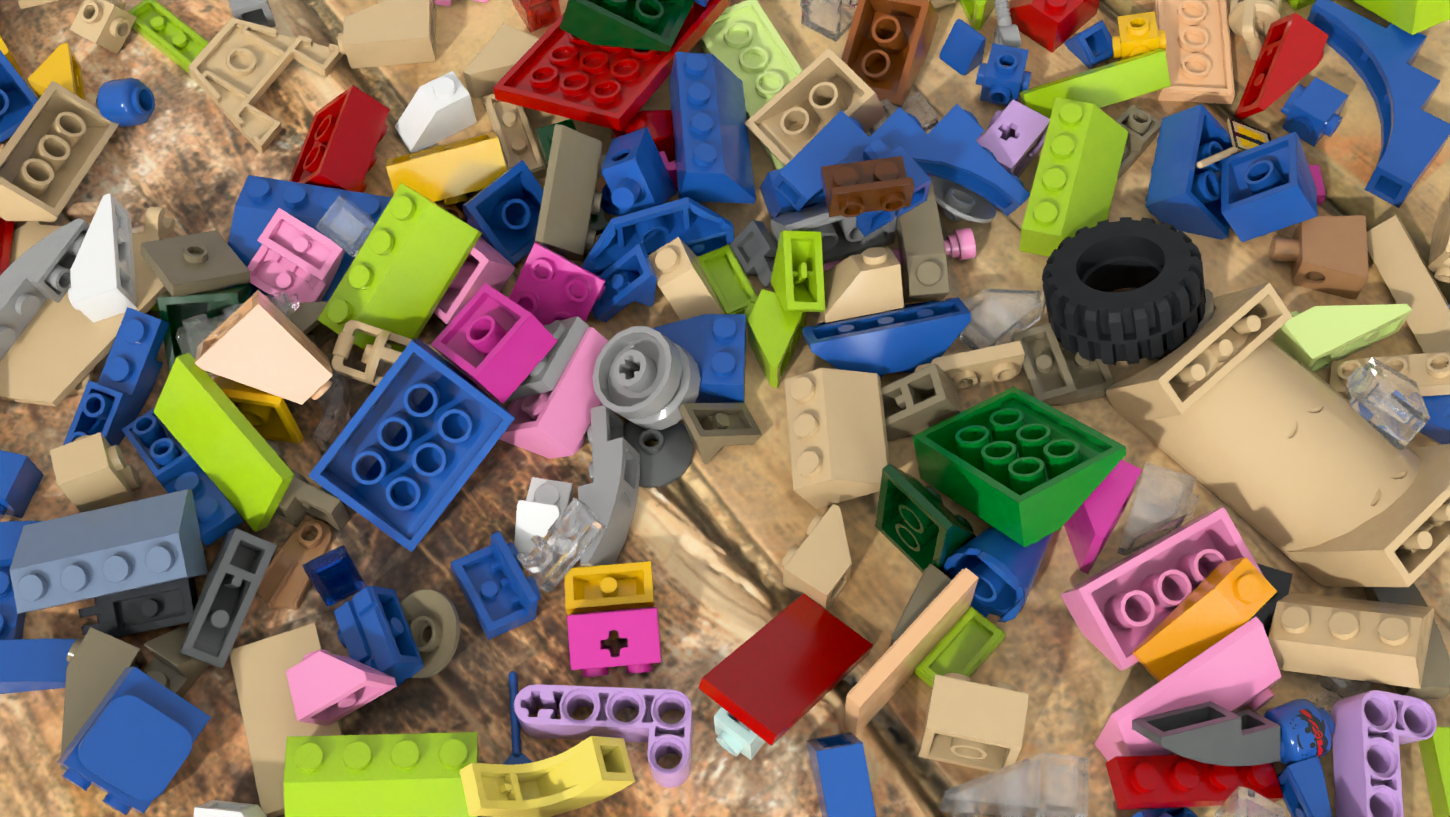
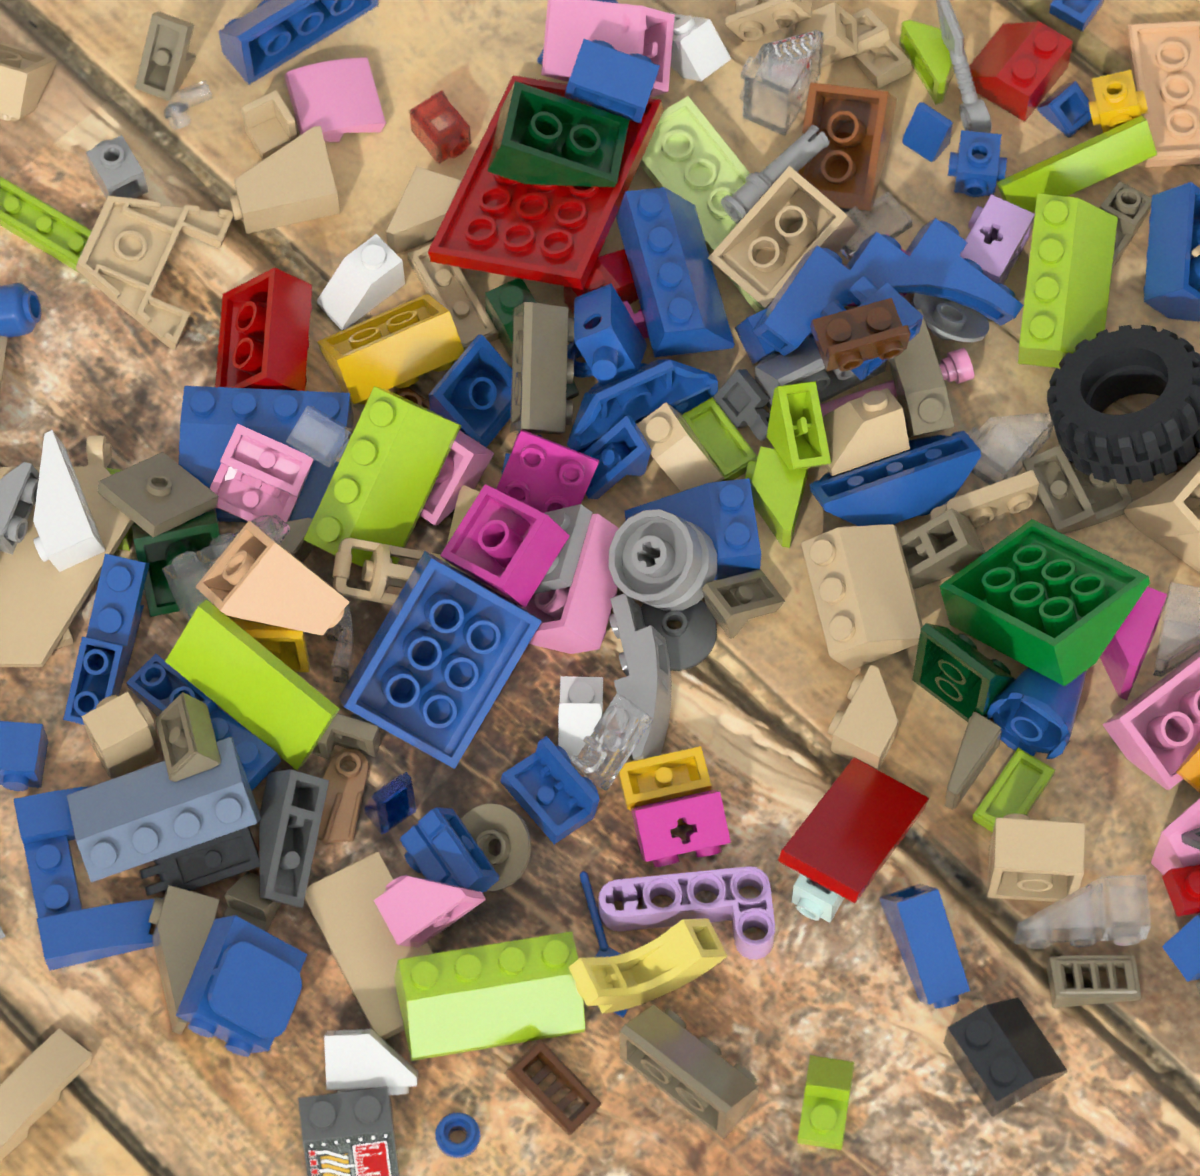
camera: 10 degrees left, 5 degrees up
(148, 484) = (187, 738): none -> dark tan slope
(841, 45) = (758, 183): none -> light grey pin
(908, 652) = (966, 800): light nougat tile -> none

